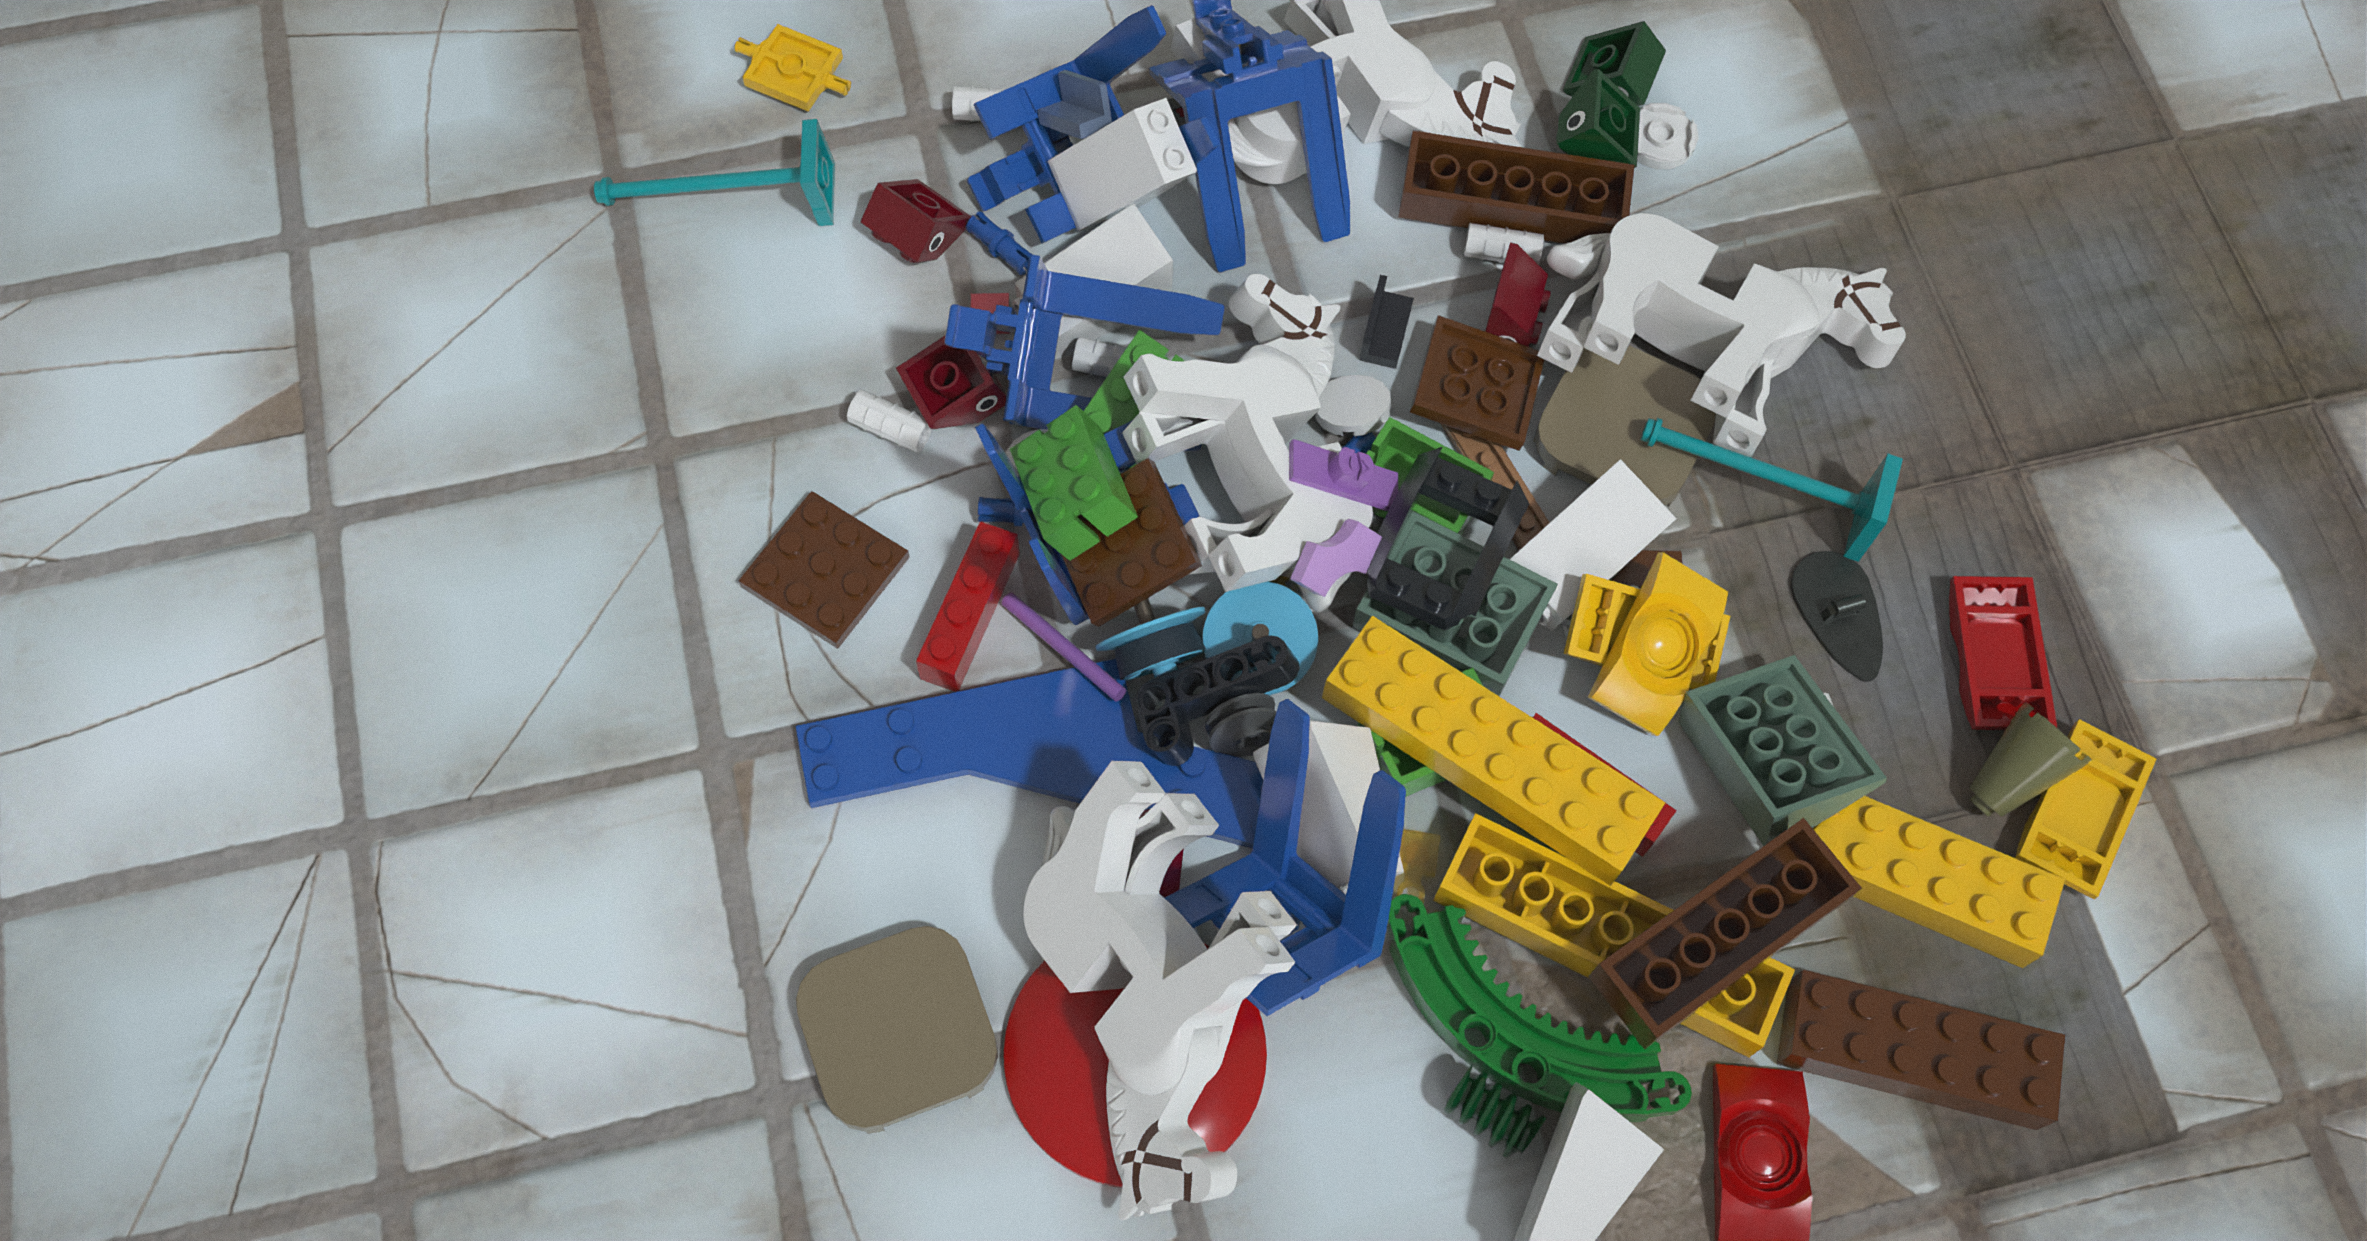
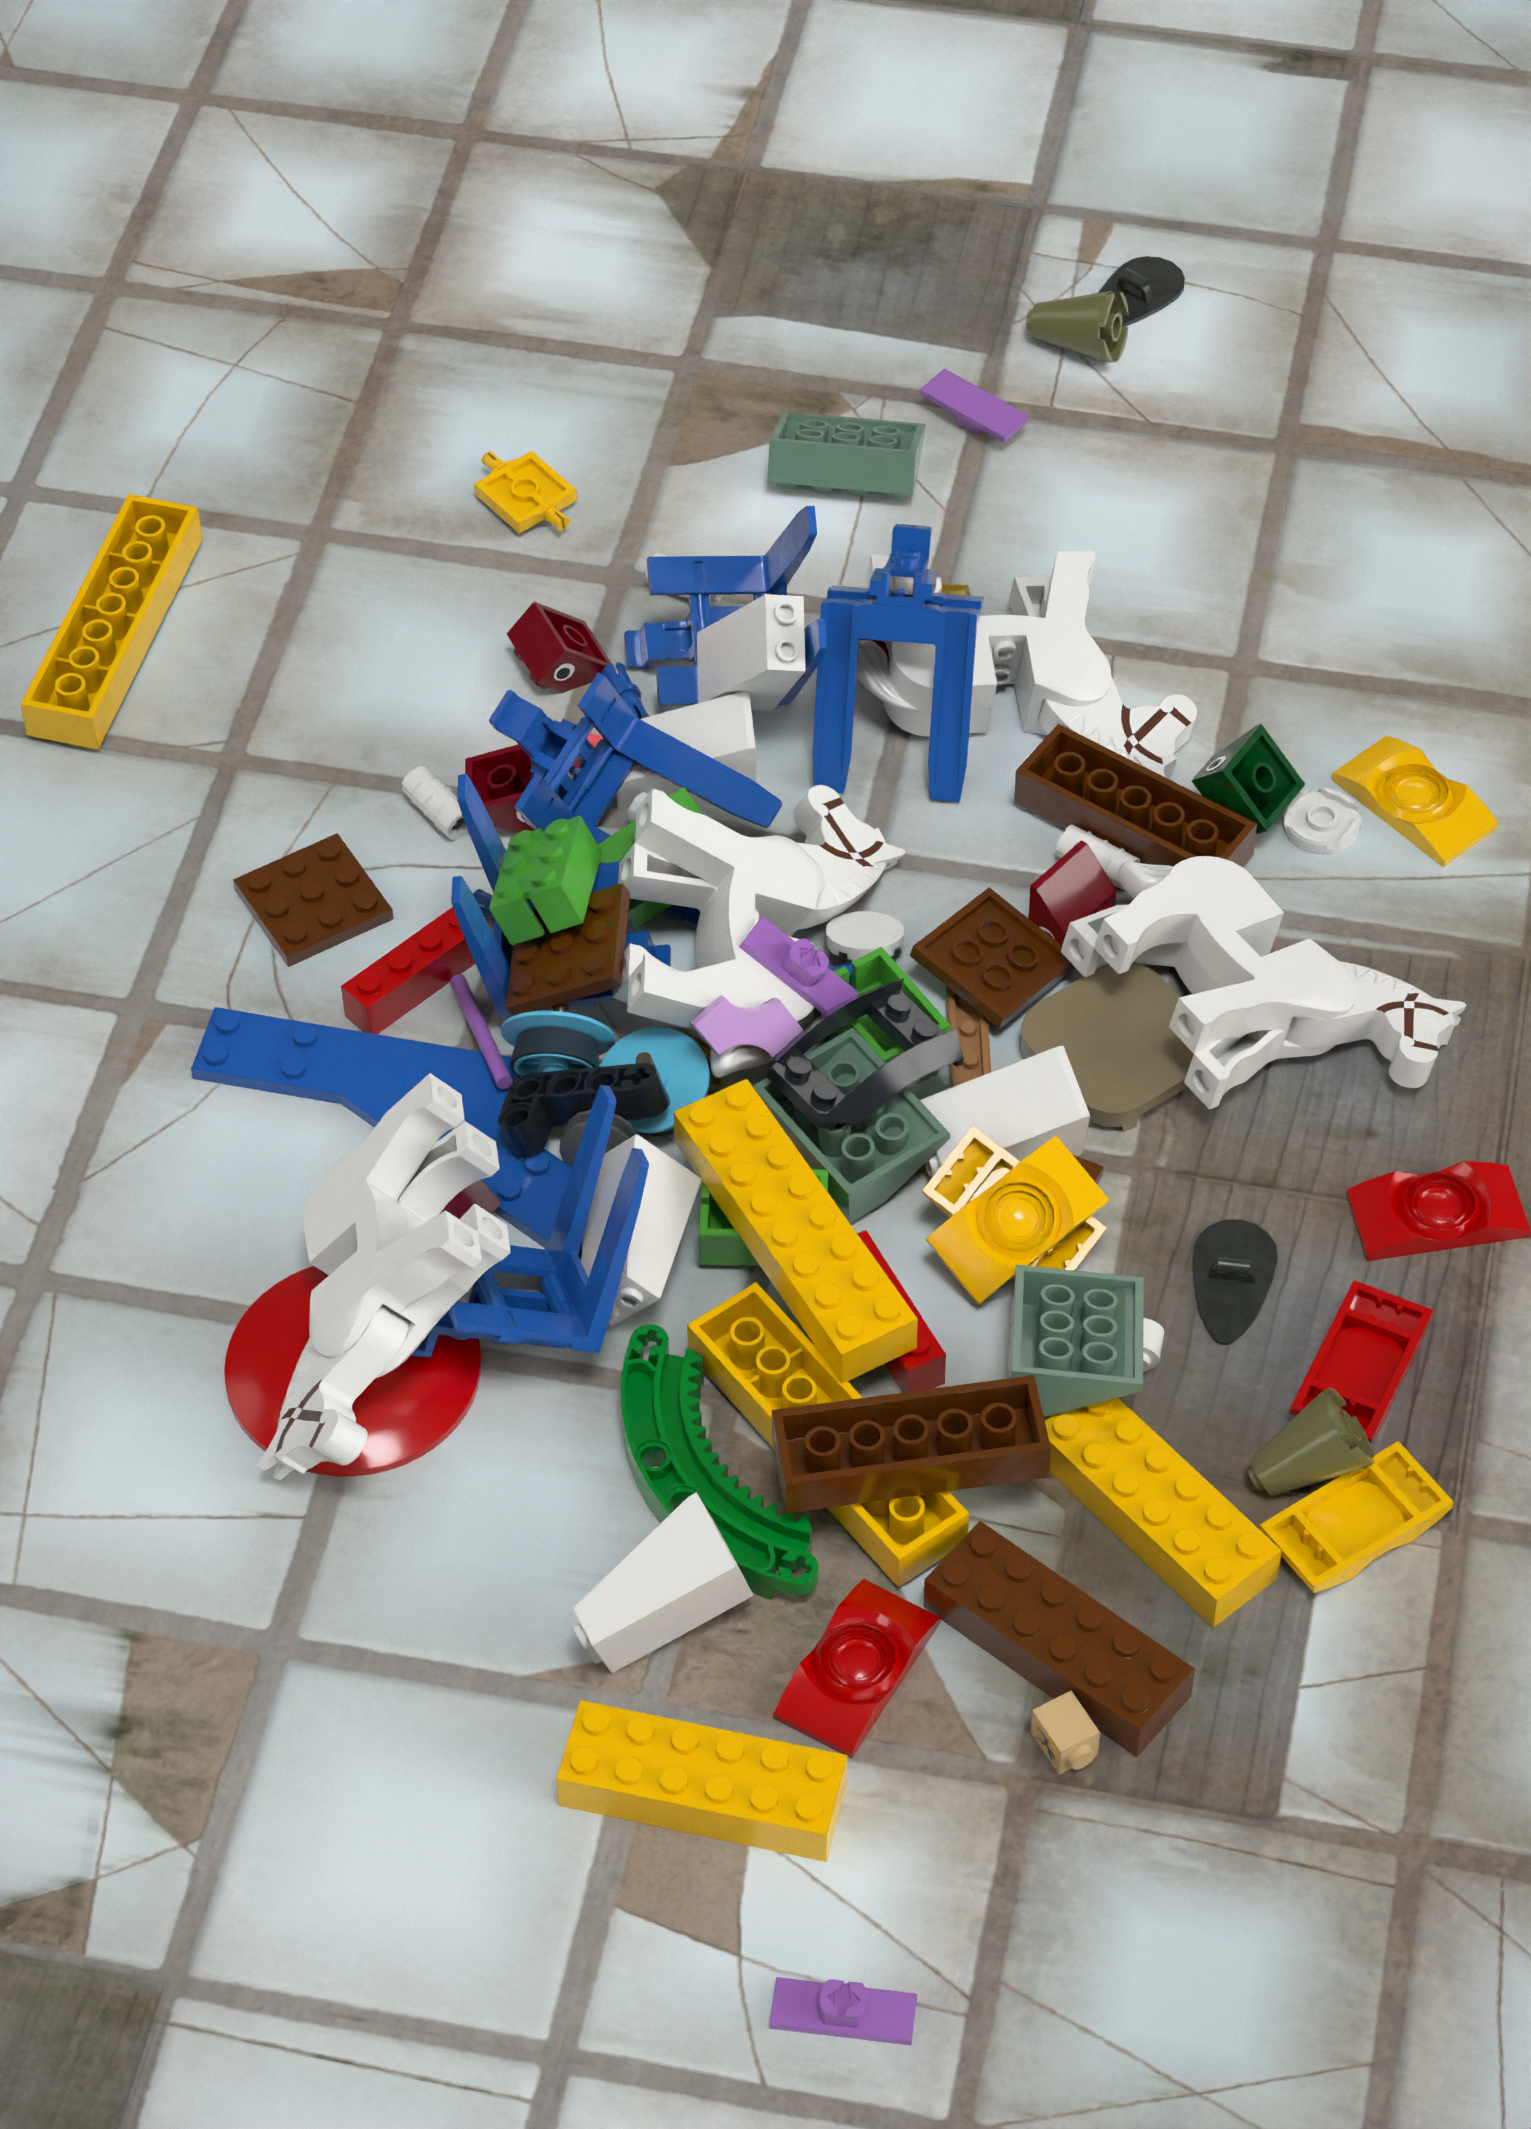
camera: 30 degrees right, 15 degrees down
(471, 353) = (112, 622): none -> yellow brick
(814, 174) = (486, 580): teal tile -> none
(896, 1028) = (161, 1260): dark tan tile -> none
(1082, 107) = (747, 589): sand blue panel -> none
(1386, 327) = (939, 882): black panel -> none
(1418, 859) = (685, 1307): clear yellow plate -> none
(1493, 1113) = (623, 1513): dark green piece -> none
(1625, 55) = (1320, 742): dark green slope -> none
(1725, 86) = (1416, 799): none -> yellow slope
(1869, 507) = (1297, 1190): teal tile -> none
(1967, 475) = (1437, 1210): none -> red slope
(1980, 1143) = (1065, 1733): none -> tan brick

